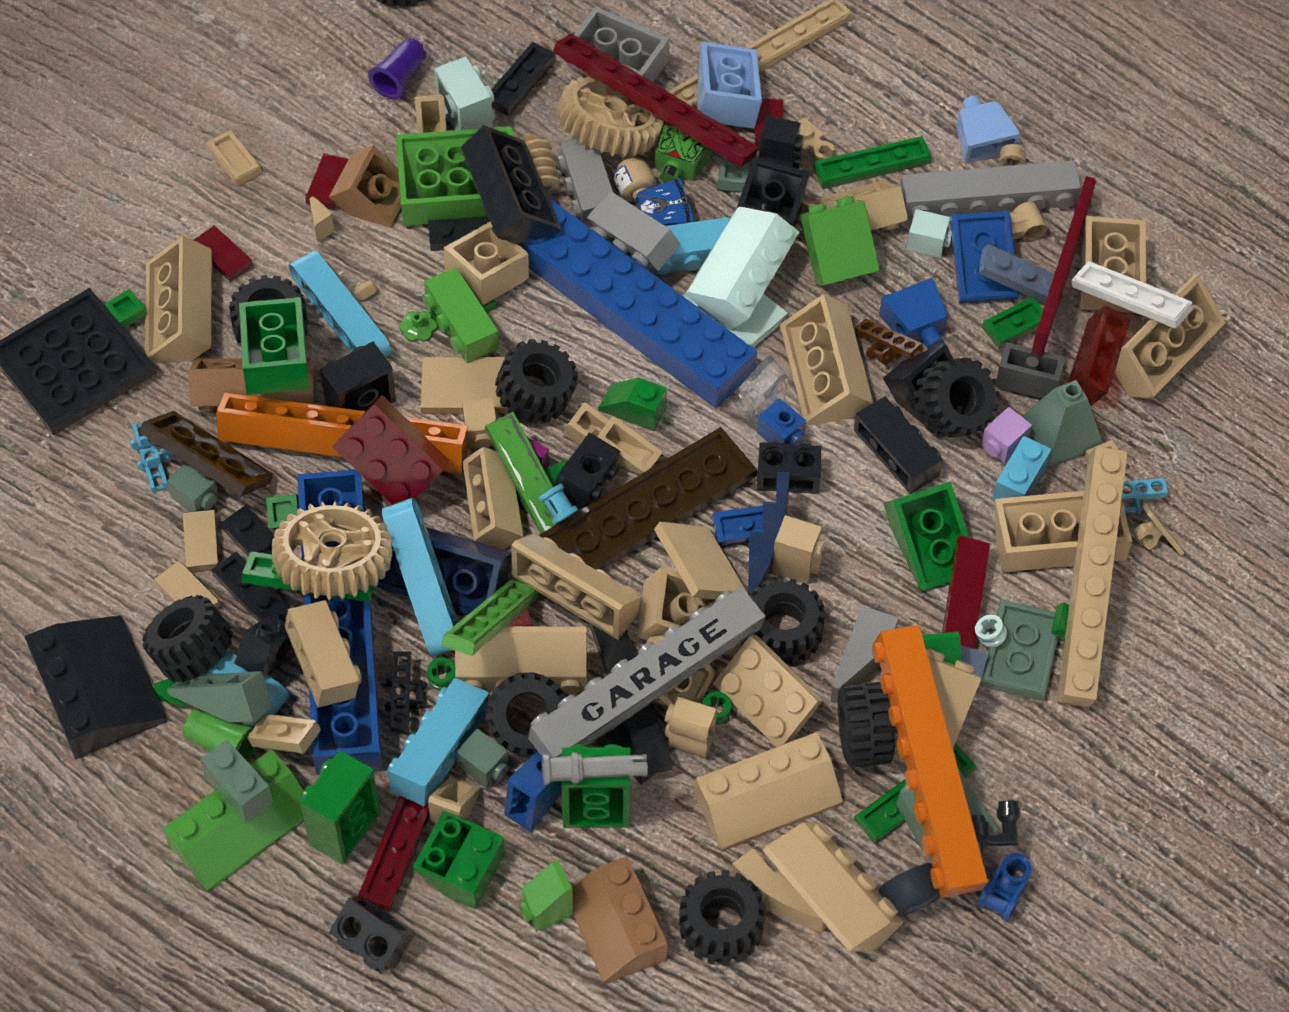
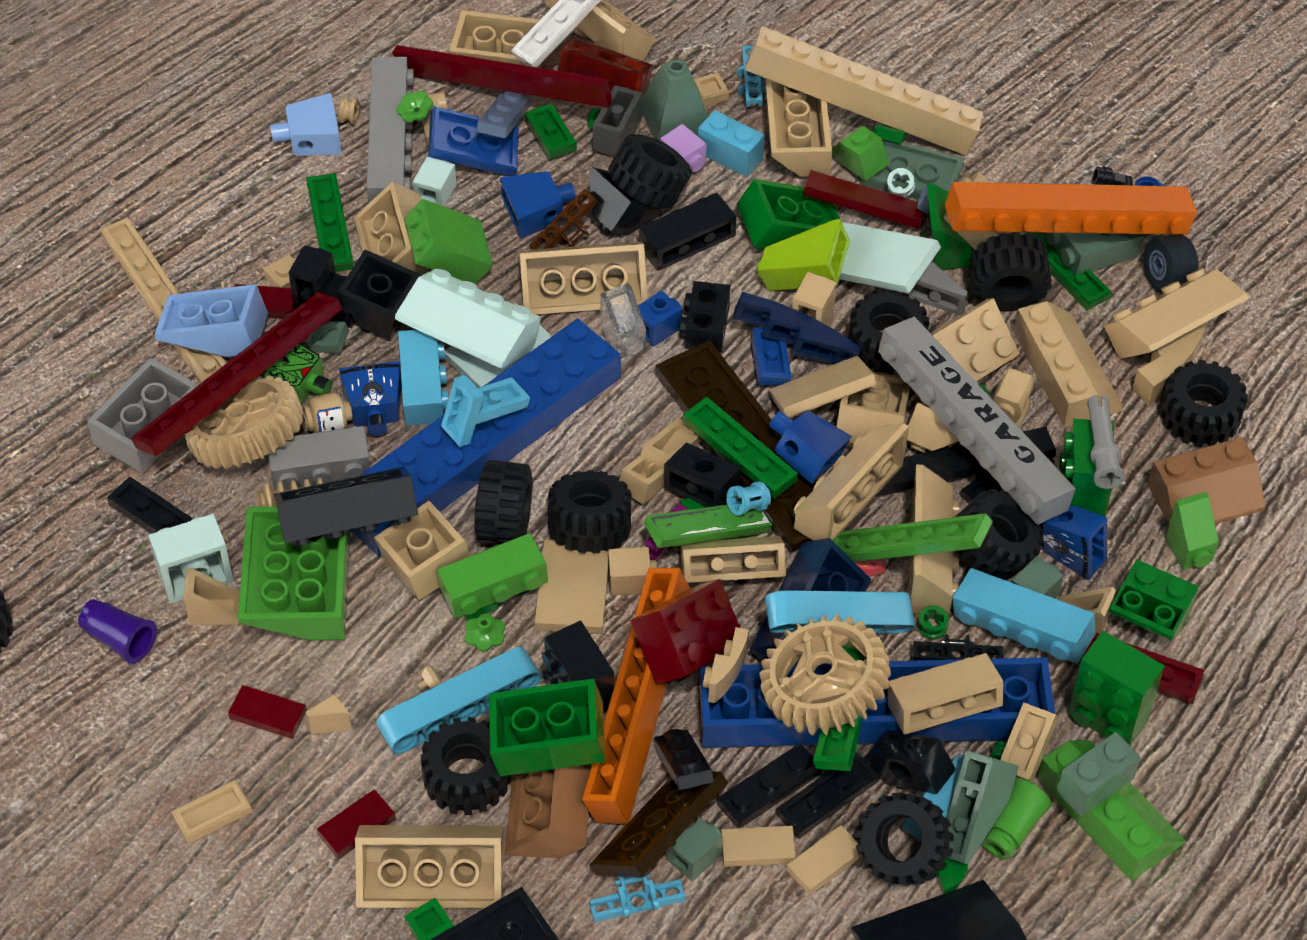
camera: 85 degrees left, 5 degrees down
(266, 465) = (683, 759): none -> black plate
(279, 508) = (731, 757): green plate -> none
(339, 478) = (726, 666): none -> tan slope
(369, 187) = (289, 665): medium nougat slope -> none
(374, 925) = (1237, 683): black brick -> none
(449, 230) = (364, 587): black plate -> none
(533, 309) = (503, 501): none -> black tyre
(617, 495) = (740, 446): none -> green plate
(624, 273) = (475, 405): none -> medium azure bracket
(628, 552) = (809, 443): none -> blue torso
(633, 231) = (410, 406): light grey brick -> none
(636, 402) = (615, 435): green slope -> none
(866, 544) = (812, 251): none -> lime slope
(870, 600) = (886, 257): none -> light aqua tile
(1009, 198) = (414, 106): none -> bright green plant
(1023, 589) = (861, 153): none -> bright green slope

